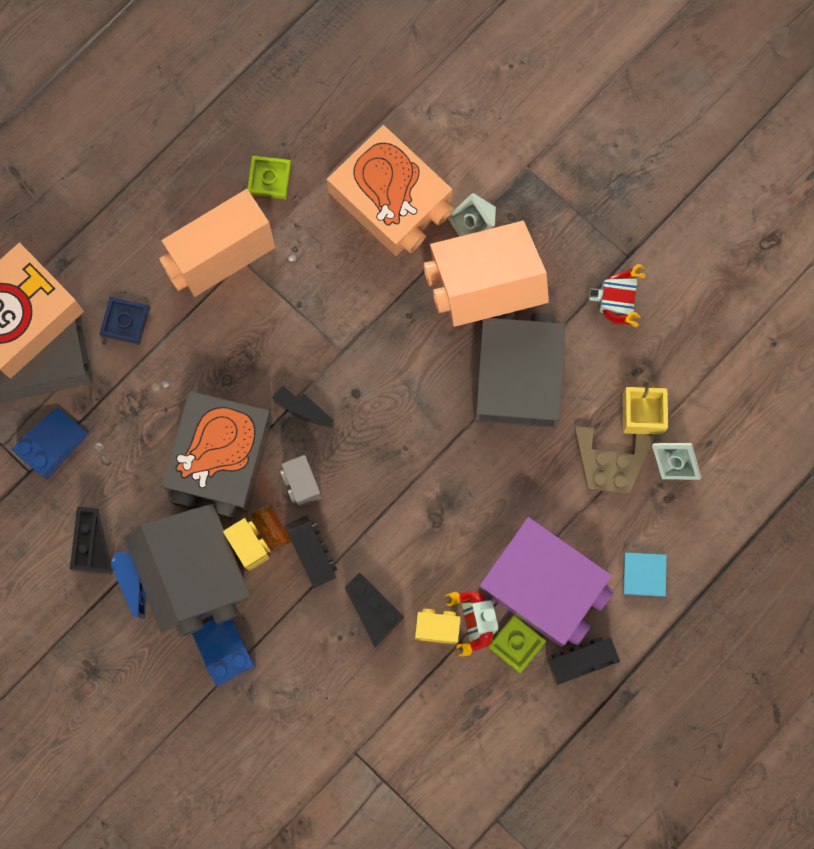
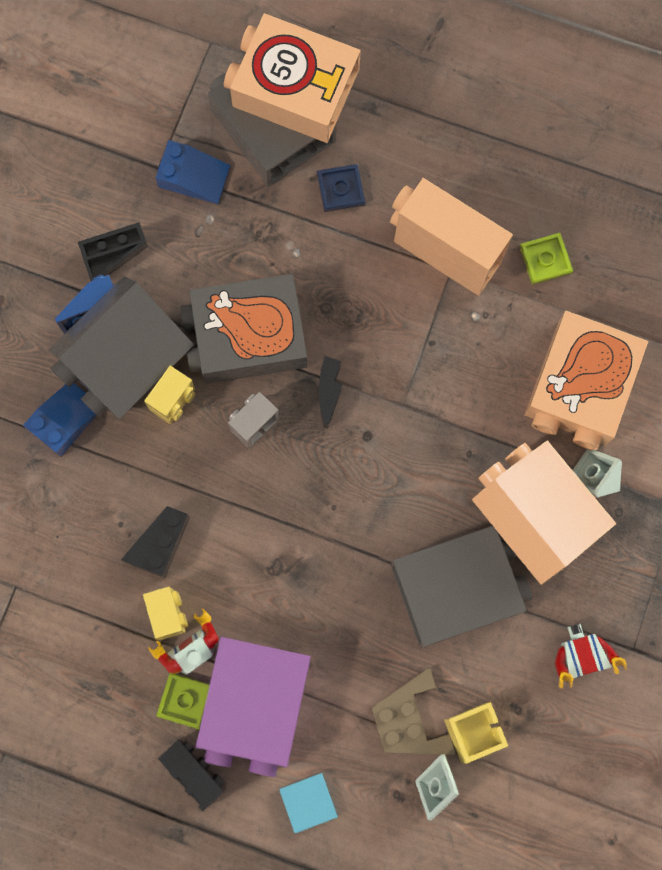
camera: 65 degrees right, 0 degrees up
(270, 528) = (197, 412): clear orange panel -> none
(311, 551) = (190, 458): black wedge -> none

